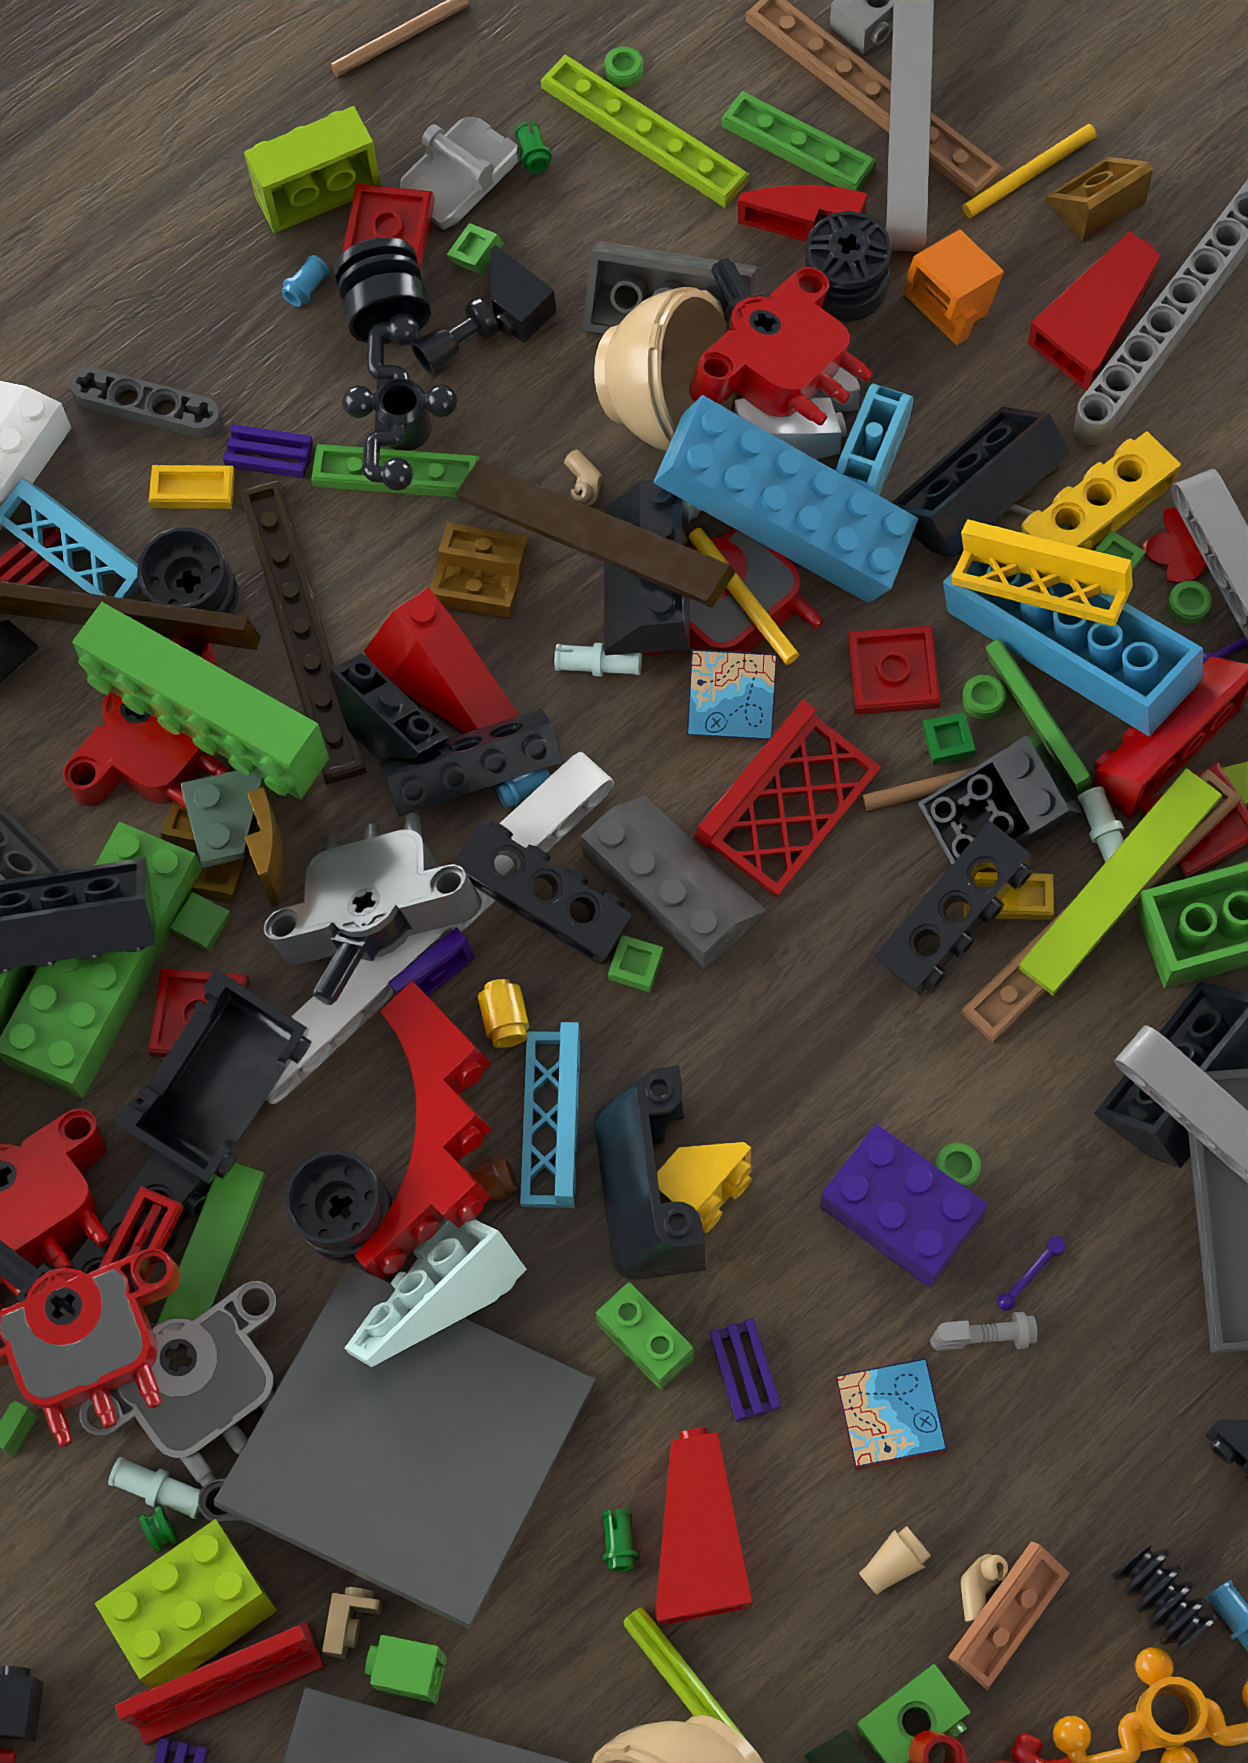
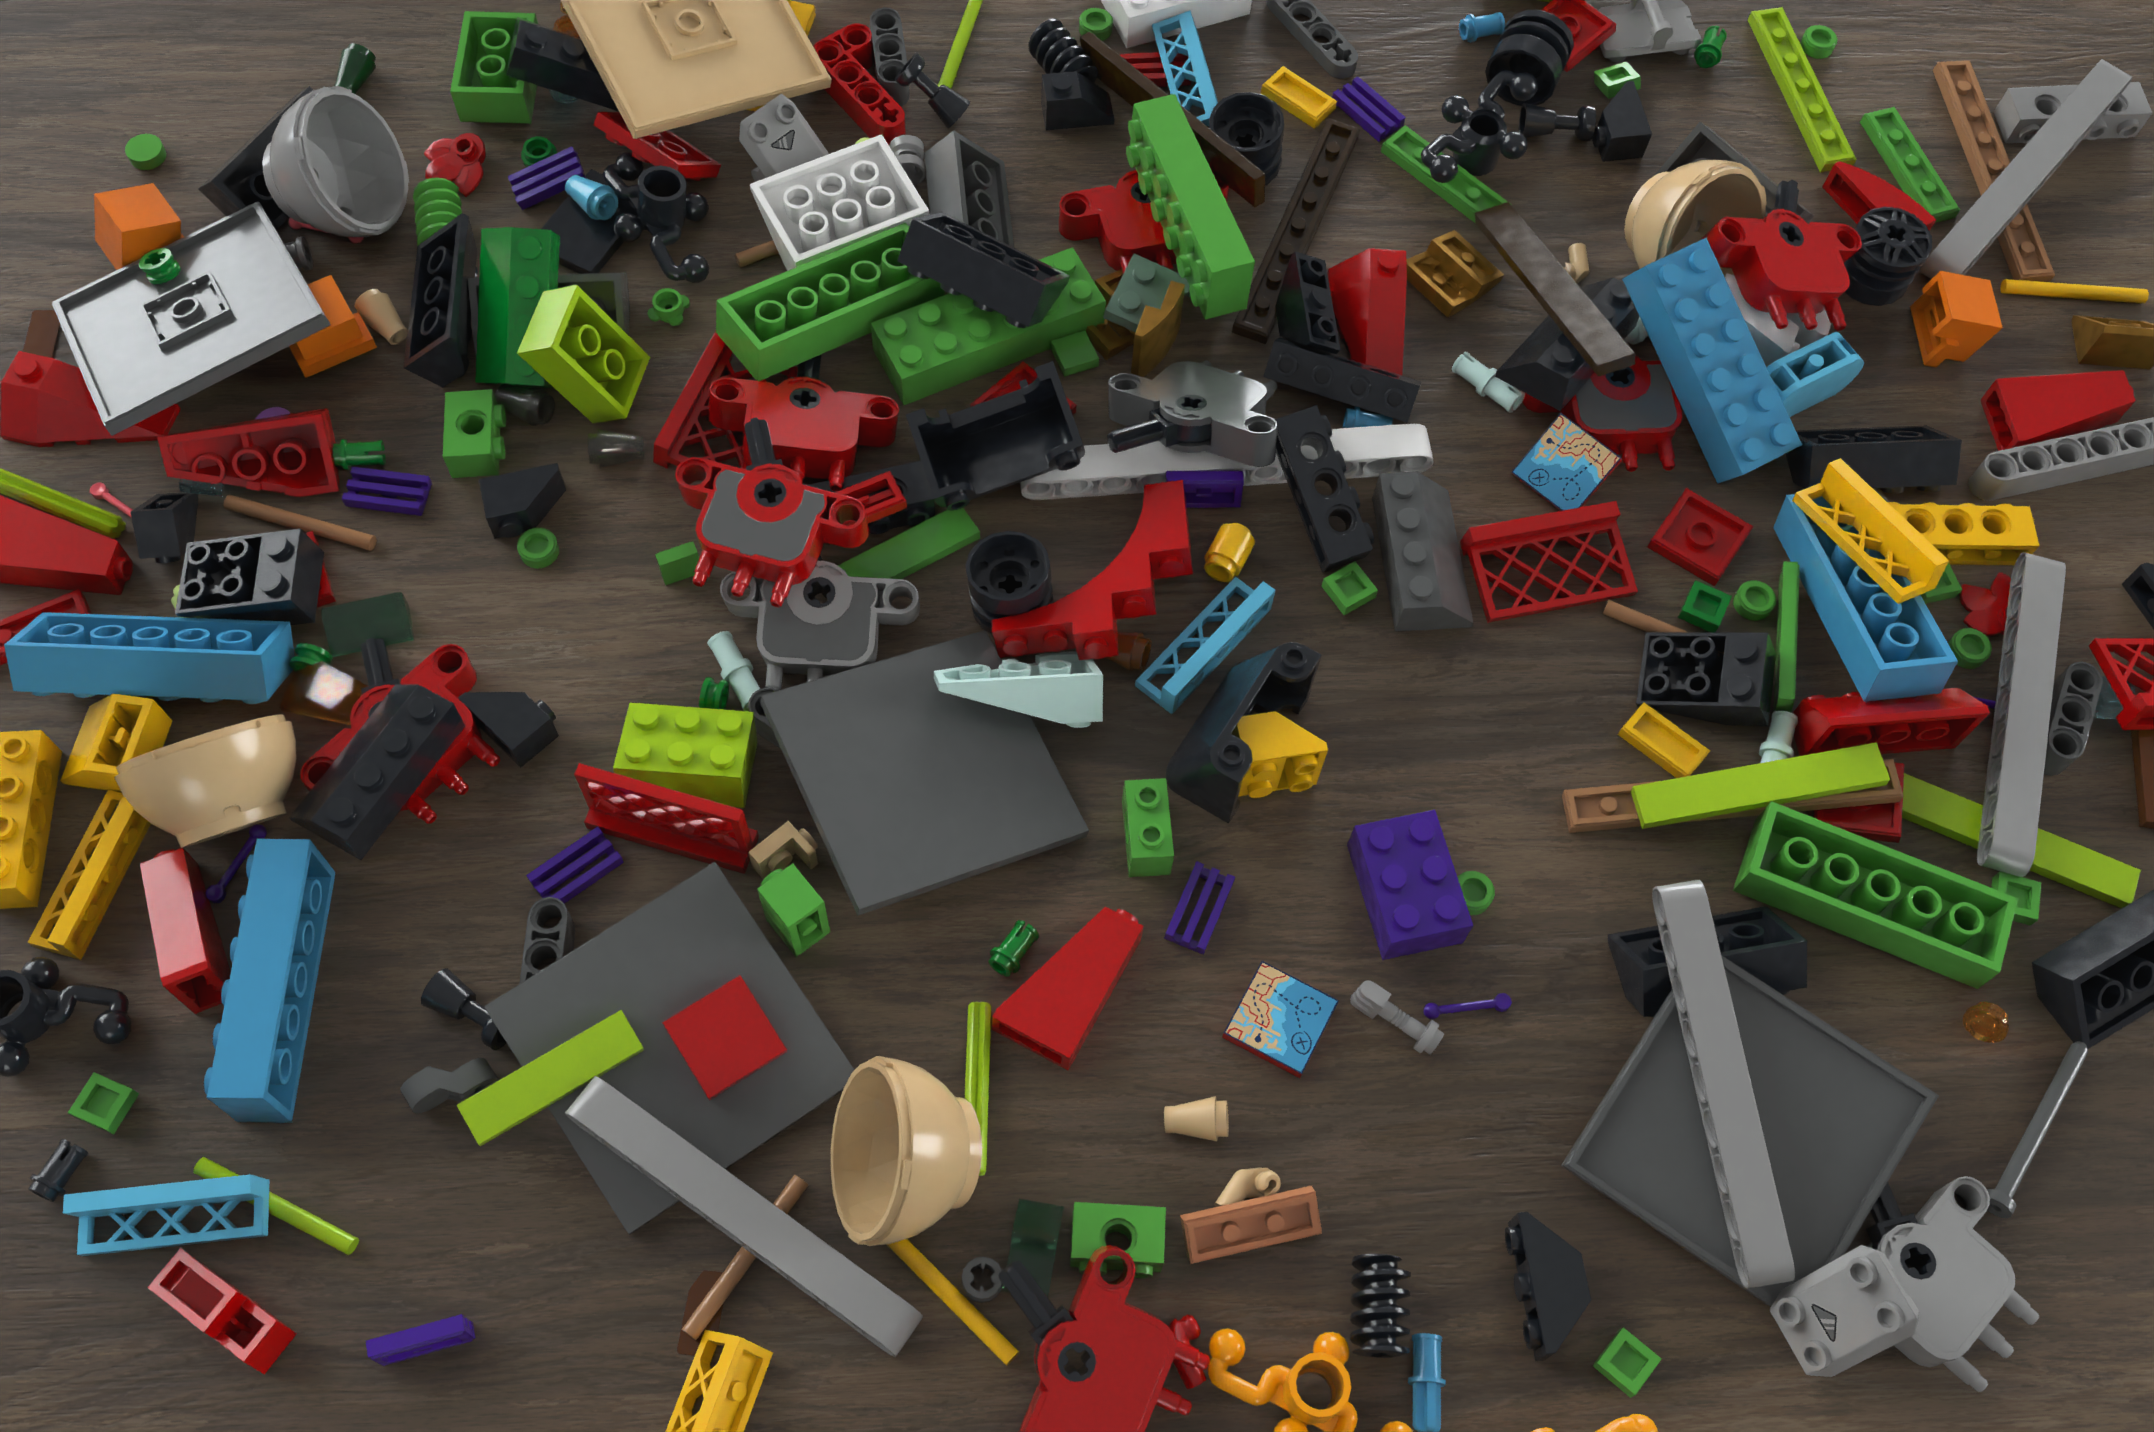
camera: 30 degrees right, 5 degrees down
(748, 601) = (1628, 417): yellow bar -> none
(988, 849) = (1672, 689): black brick -> none

